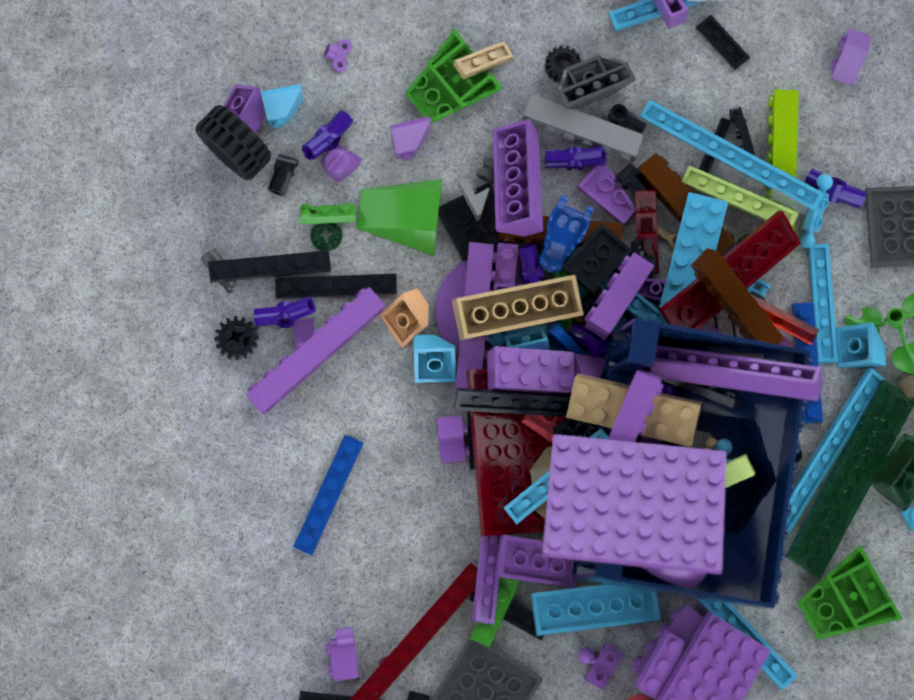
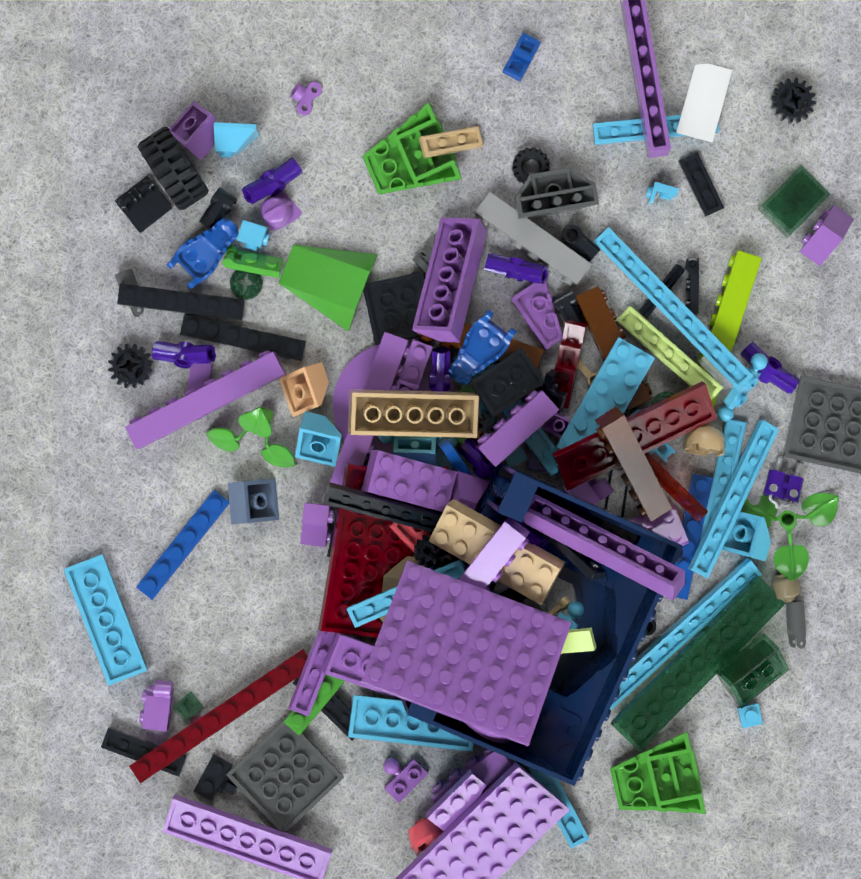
camera: 20 degrees right, 10 degrees up
(211, 187) = (143, 204): none -> black hinge
(271, 586) = (105, 619): none -> medium azure plate
(279, 216) = (202, 253): none -> blue animal
(322, 189) = (253, 235): none -> medium azure brick
(372, 651) = (188, 707): none -> clear green slope
(374, 354) = (258, 422): none -> bright green plant
(385, 435) = (253, 501): none -> sand blue slope
(410, 136) = (354, 206): medium lavender slope -> none
(475, 202) = (403, 291): light grey slope -> none
(692, 55) = (665, 192): none -> medium azure bracket
(795, 268) = (705, 441): none -> tan cylinder
(811, 36) = (794, 201): none -> clear green slope
(838, 313) = (733, 499): none -> medium azure plate
(880, 293) = (782, 485): none -> dark purple piece

